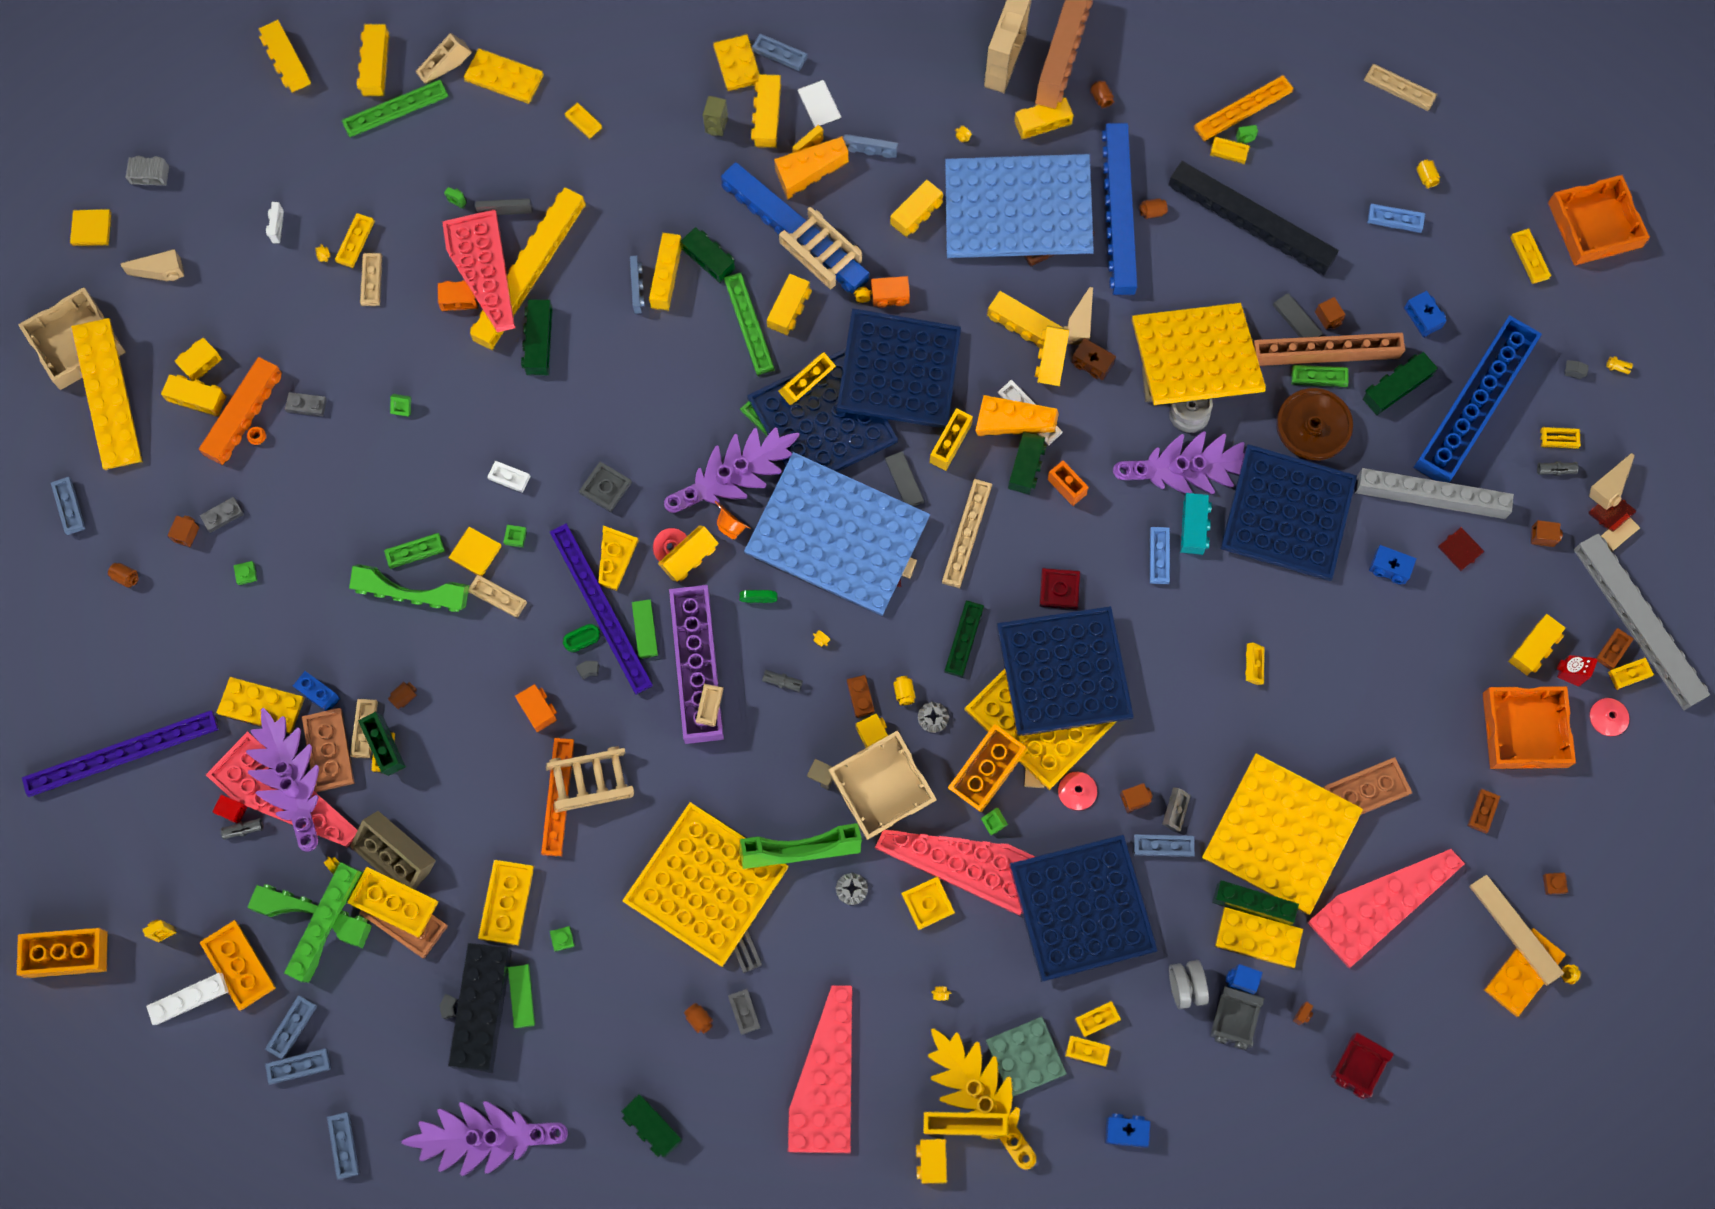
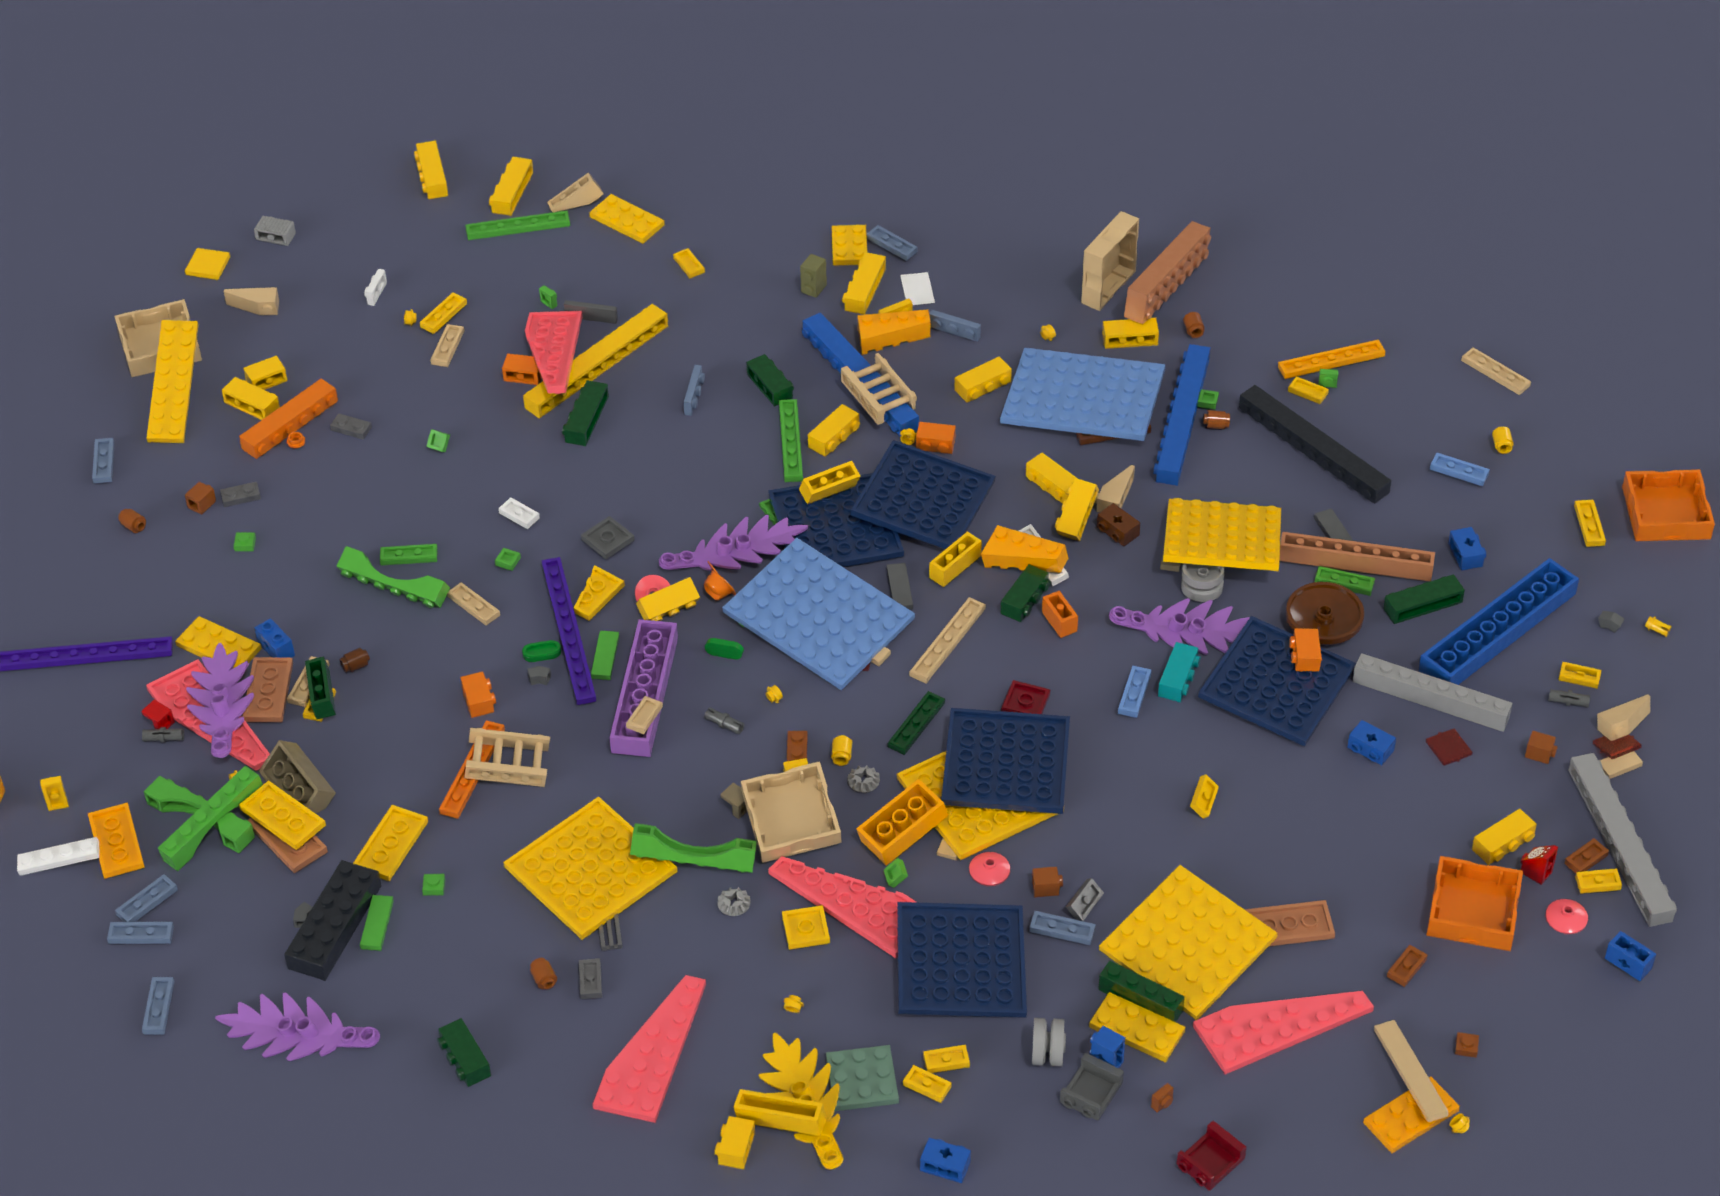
camera: 15 degrees right, 25 degrees down
(475, 551) = (465, 565): yellow tile -> none
(665, 271) = (724, 385): yellow brick -> none
(1139, 184) = (1208, 399): none -> bright green plate
(1310, 476) = (1306, 649): none -> orange brick
(1330, 313) = (1369, 530): dark orange brick -> none
(1680, 755) = (1630, 956): none -> blue brick

